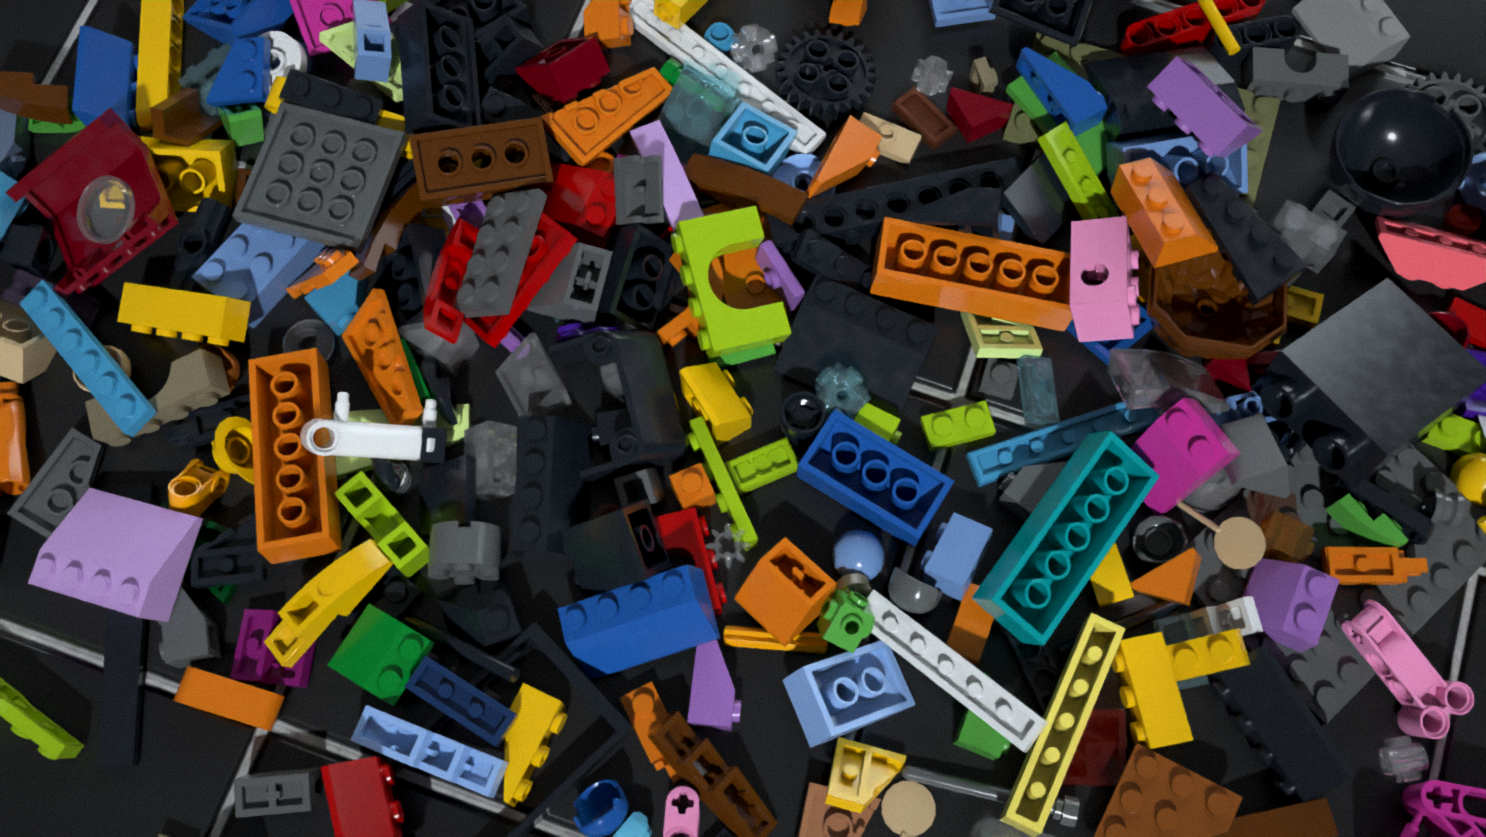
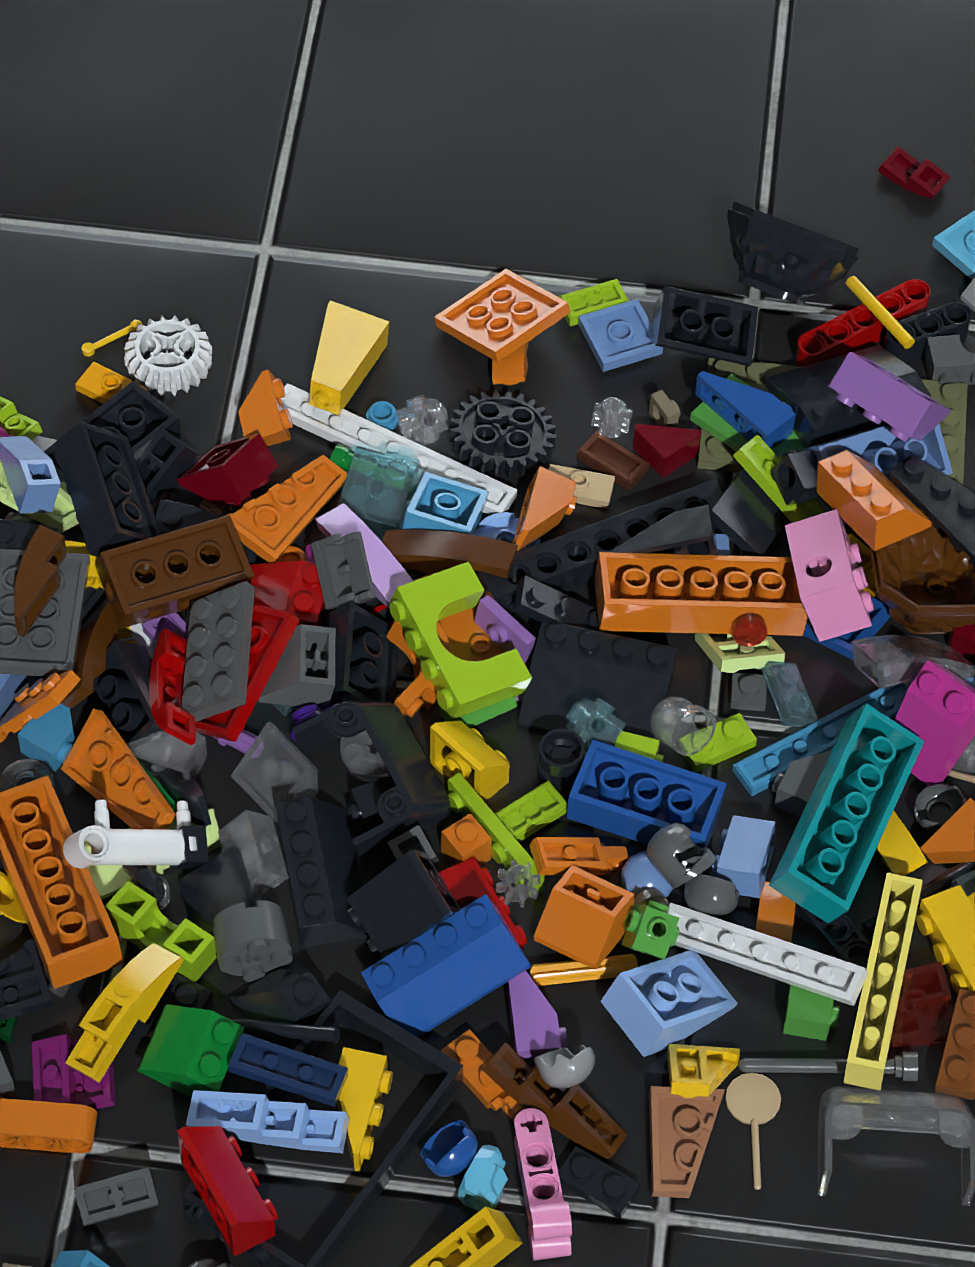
camera: 15 degrees left, 15 degrees down
(343, 151) = (37, 577): none -> reddish brown slope
(726, 752) = (563, 1069): none -> light grey hair
(794, 522) = (558, 854): none -> orange hinge
(885, 541) = (673, 852): none -> dark grey helmet
(922, 398) = (675, 720): none -> clear helmet
(1013, 320) = (749, 629): none -> clear red tile
(1095, 171) = (797, 476): none -> black brick

